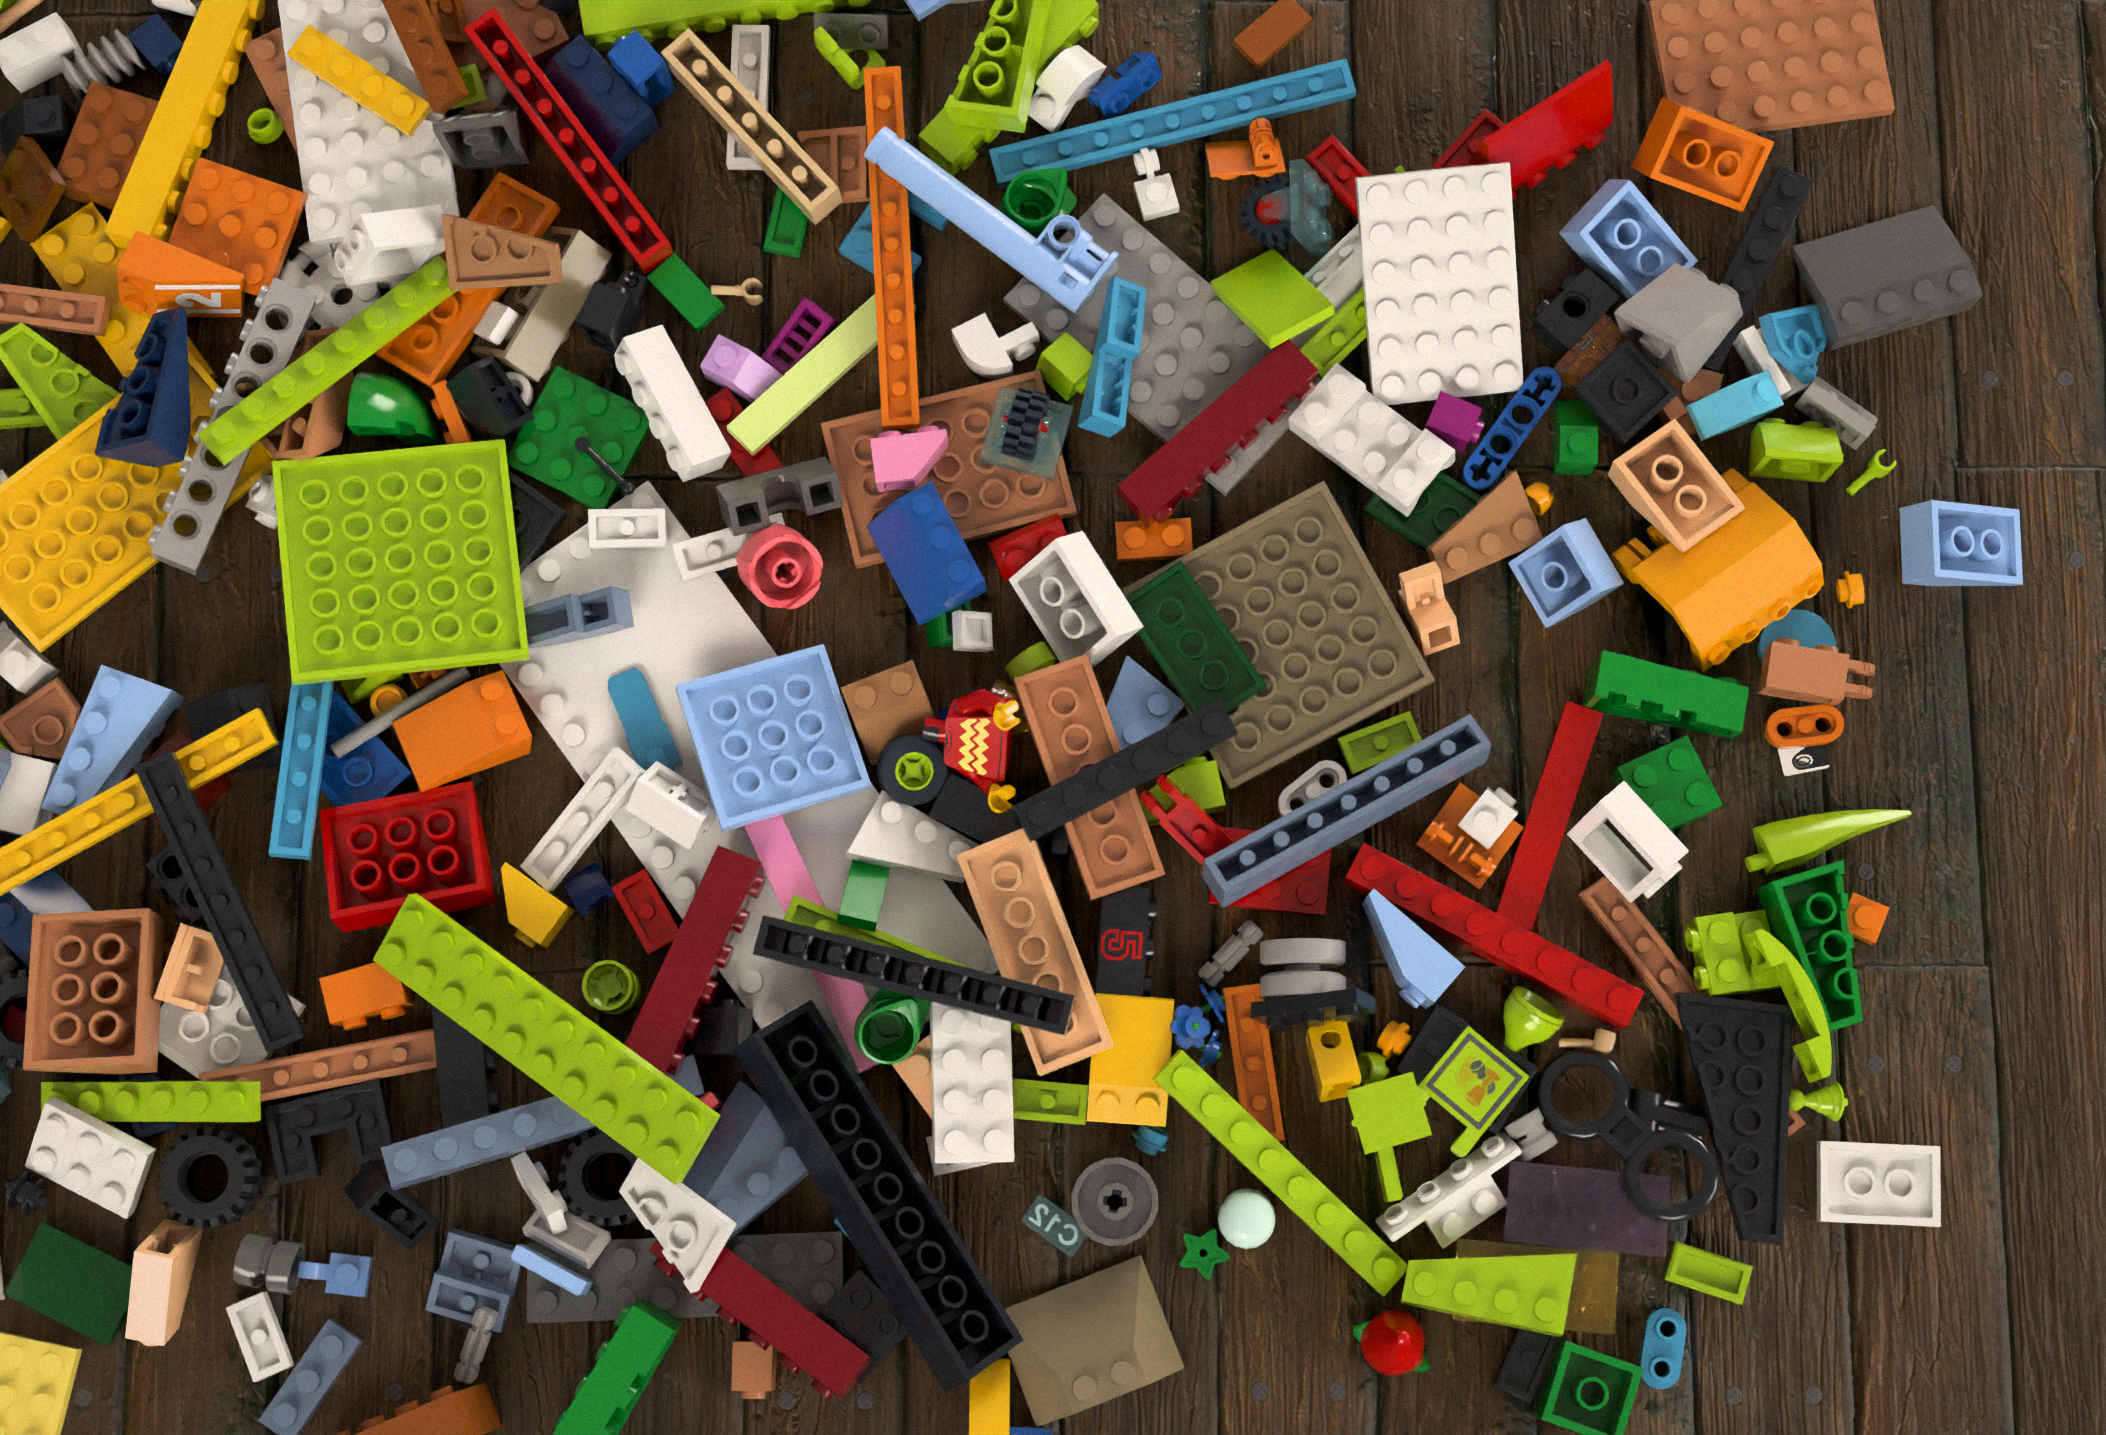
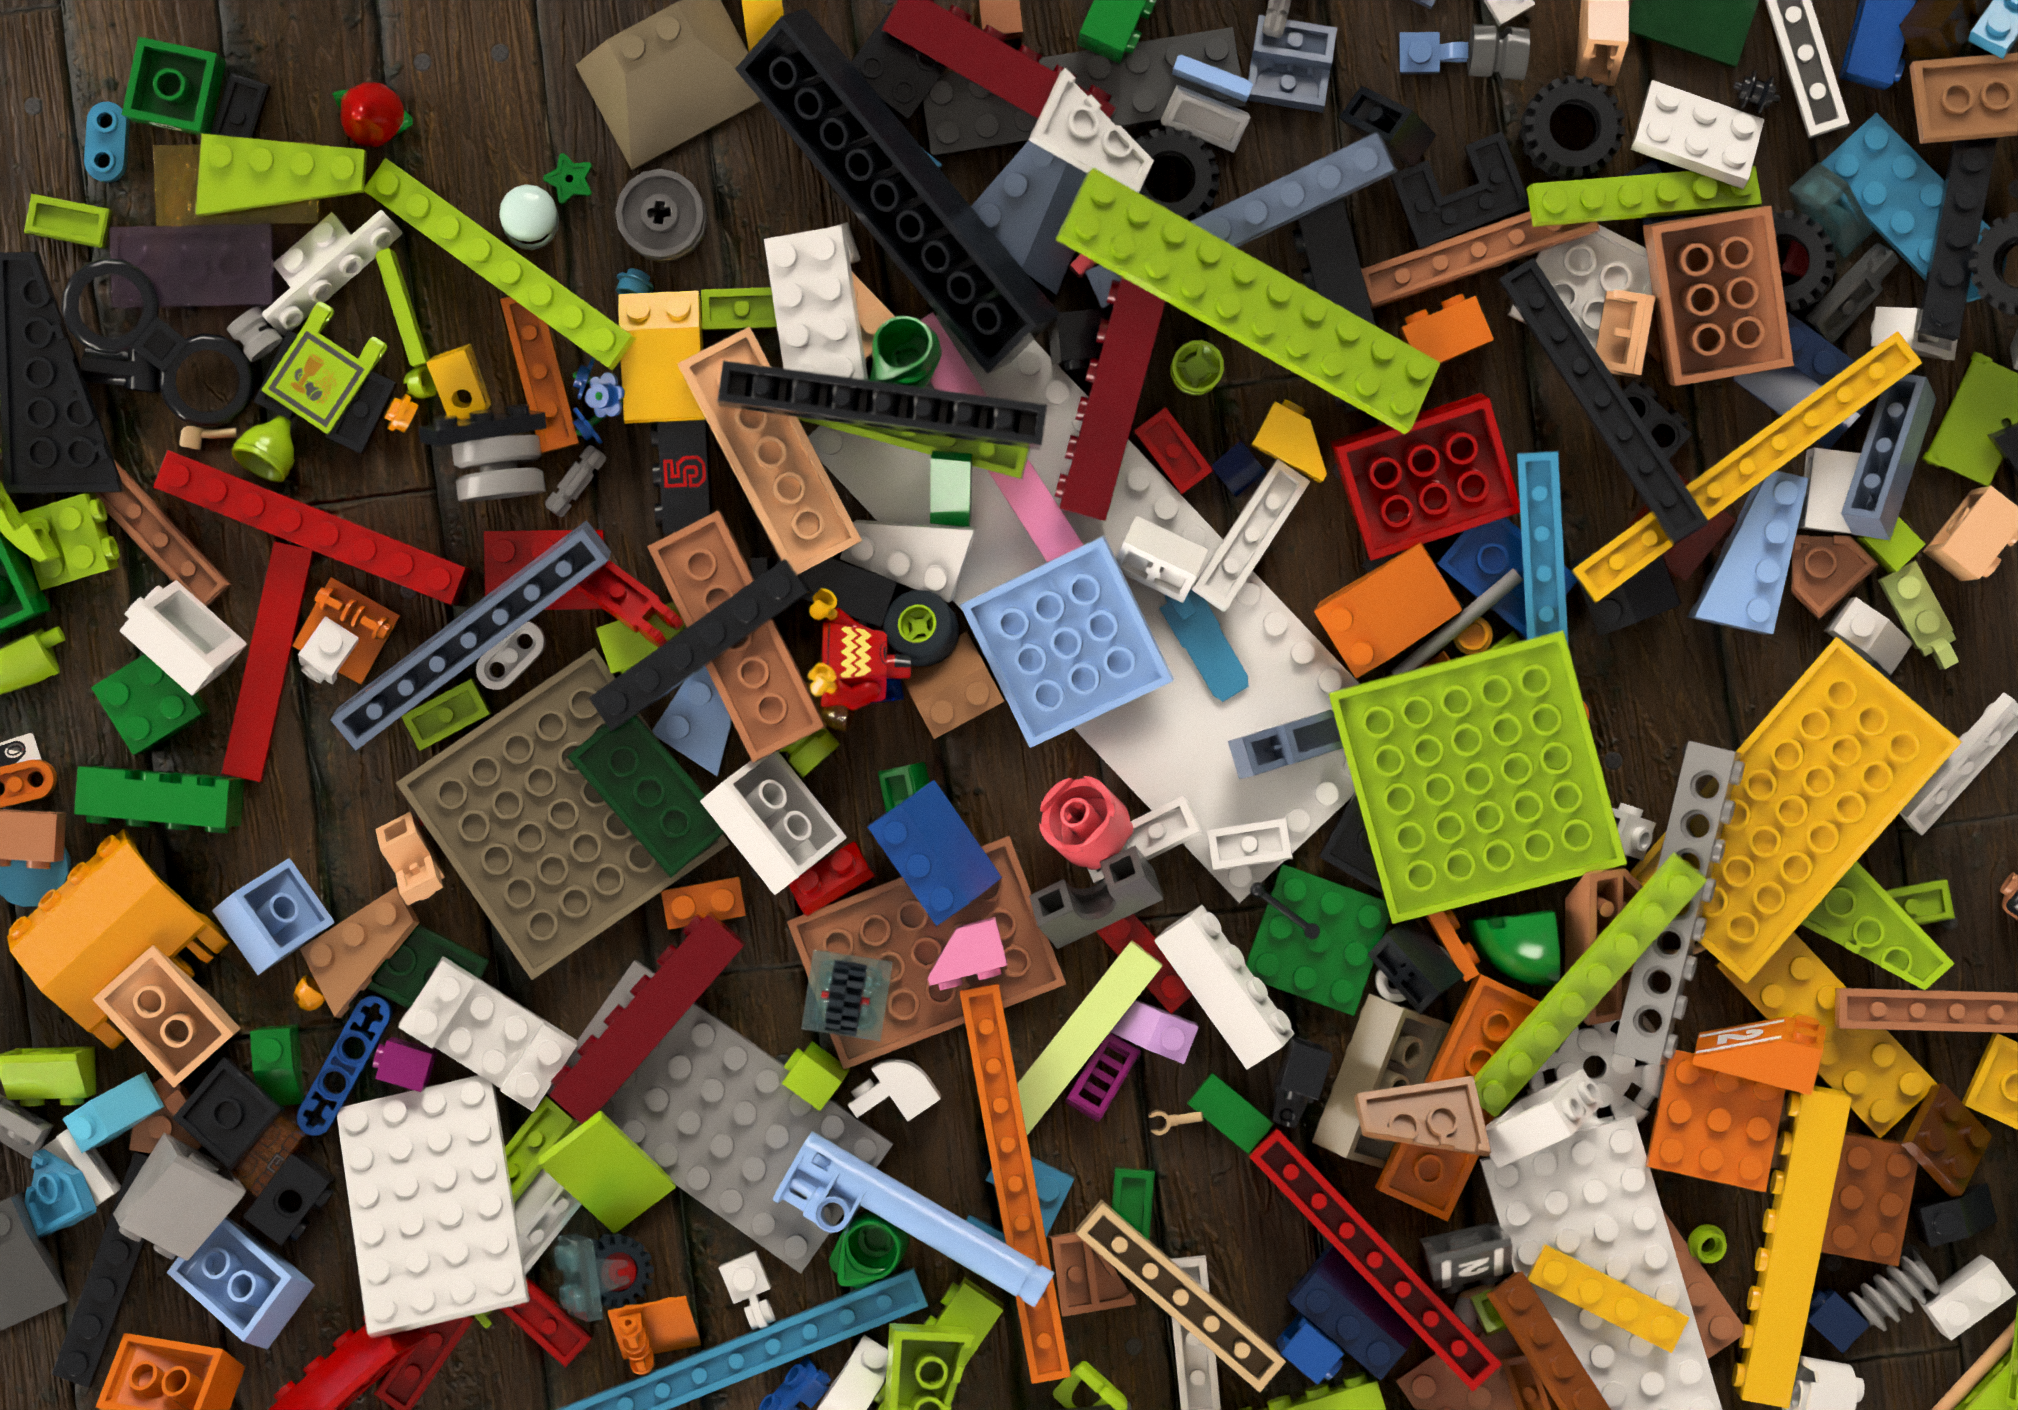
camera: 165 degrees right, 10 degrees up
(154, 410) = (1763, 910): dark blue wedge -> none
(496, 323) = (1422, 1050): white tile -> none
(534, 1181) = (1225, 142): white plate -> none
(972, 631) = (879, 782): white tile -> none
(1054, 1225) = (722, 189): clear light blue sticker -> none
(1115, 348) = (765, 1099): dark azure slope -> none
(1388, 1113) = (397, 335): lime piece -> none
(1413, 957) = (388, 492): light blue slope -> none

